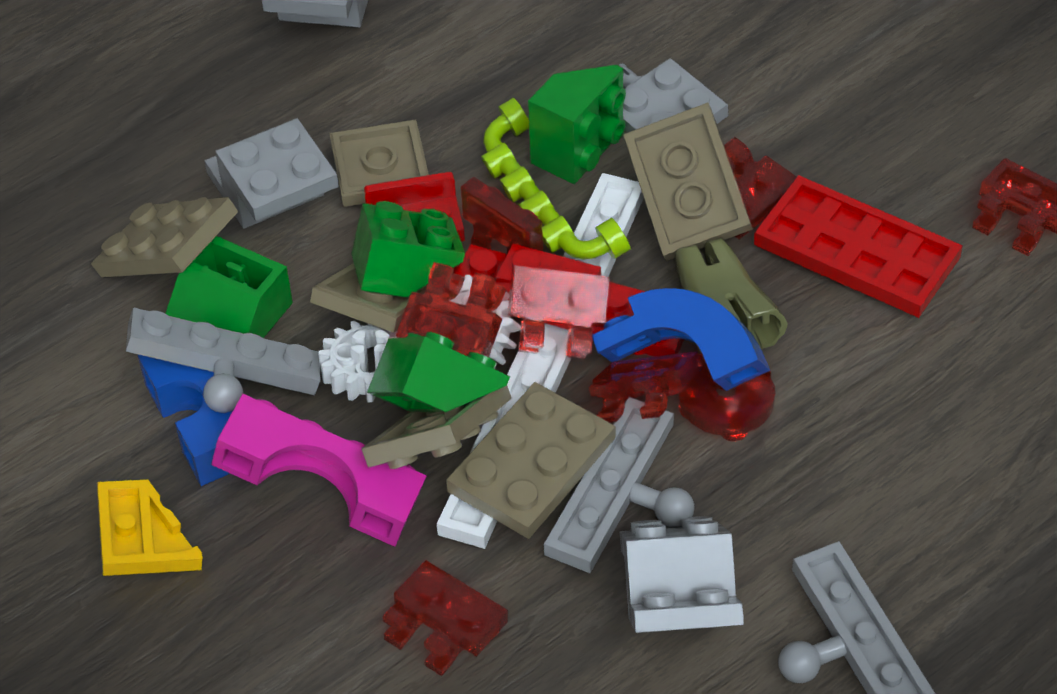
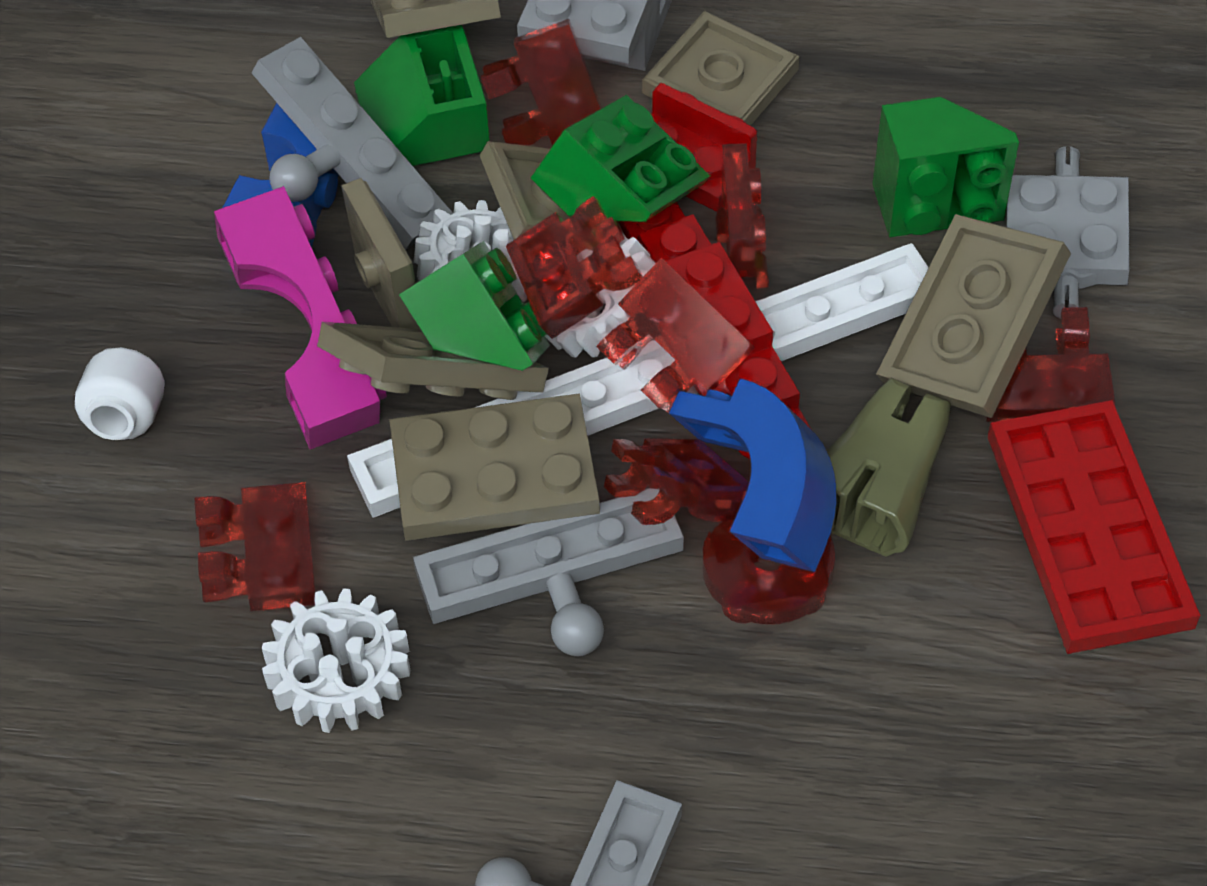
camera: 45 degrees right, 5 degrees up
(140, 532) = (119, 253): yellow wing -> none
(252, 604) = (119, 393): none -> white head
(307, 226) = (558, 80): none -> clear red plate
(331, 397) = (379, 253): none -> dark tan plate
(520, 185) = (805, 230): lime bar -> none
(546, 648) = (372, 665): none -> white gear
(680, 575) = (478, 697): bracket -> none

